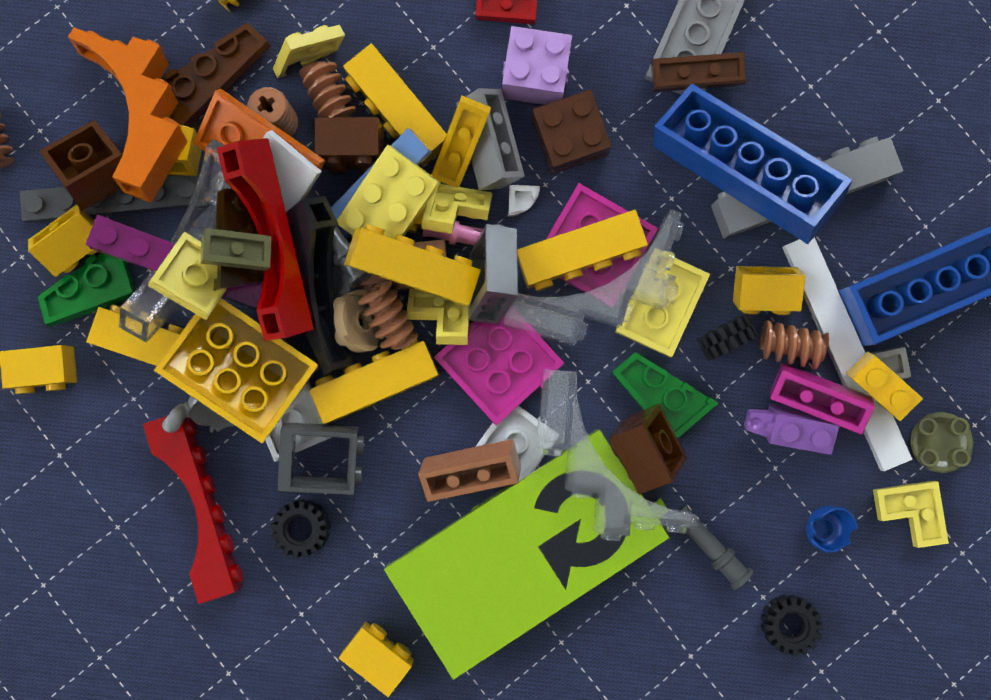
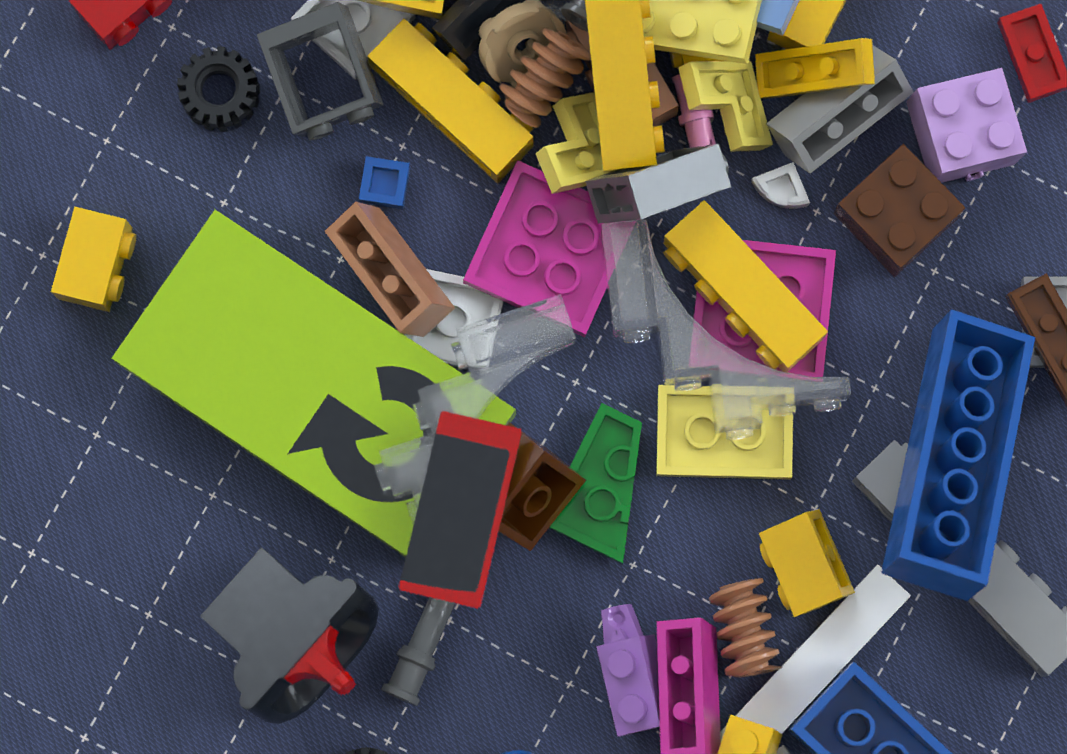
camera: 70 degrees right, 5 degrees down
(409, 447) = (384, 182): none -> blue plate
(658, 496) = (460, 509): none -> black sticker
(680, 639) = (290, 635): none -> black piece
(727, 337) = (715, 532): black tyre -> none

